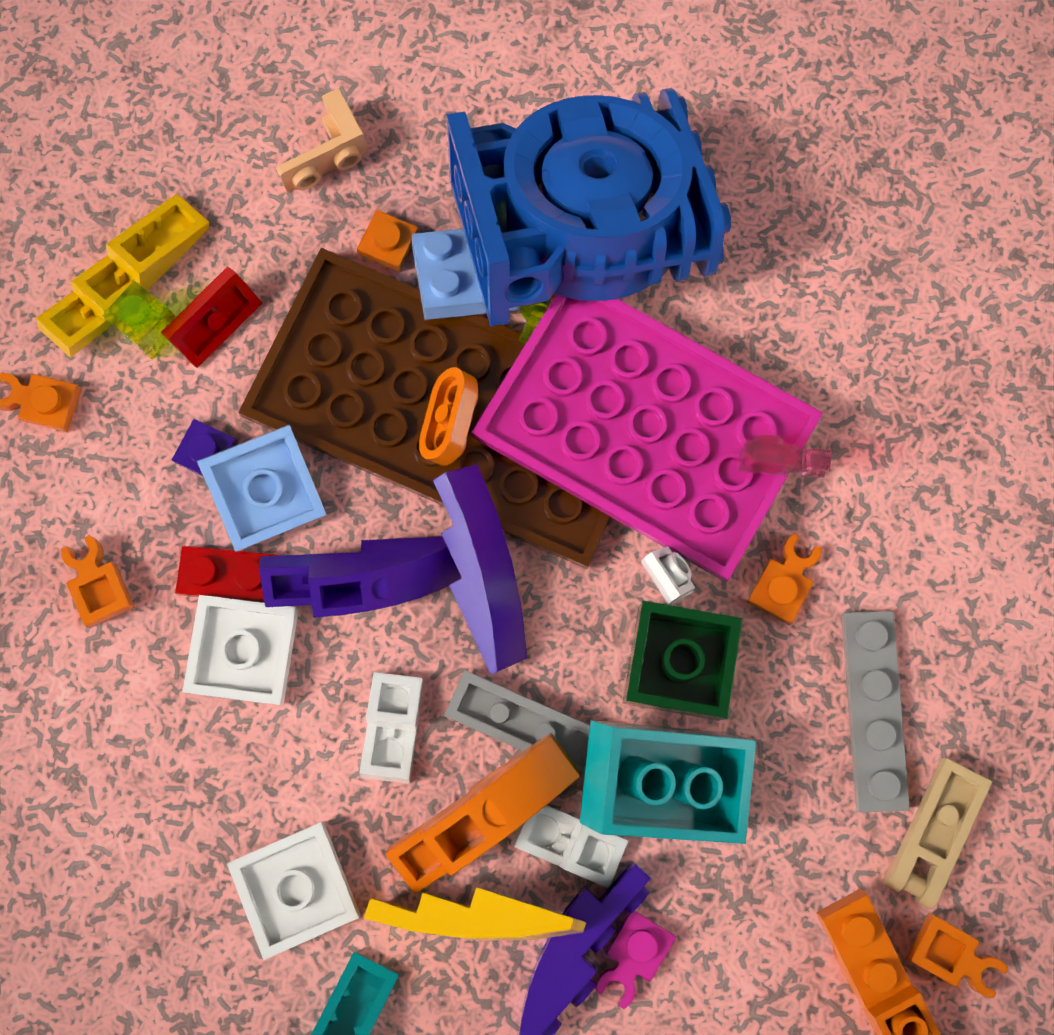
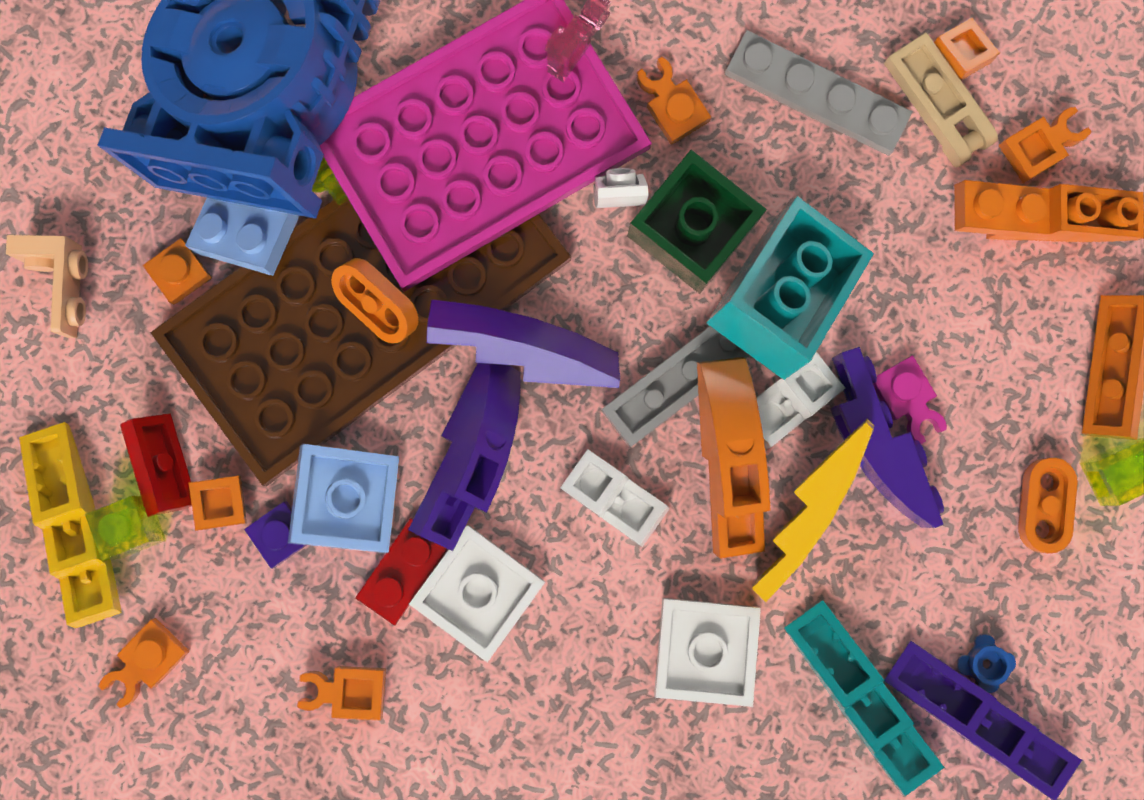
camera: 70 degrees left, 5 degrees up
(204, 384) = (217, 503): none -> orange plate
(1000, 829) = (966, 48): none -> orange plate

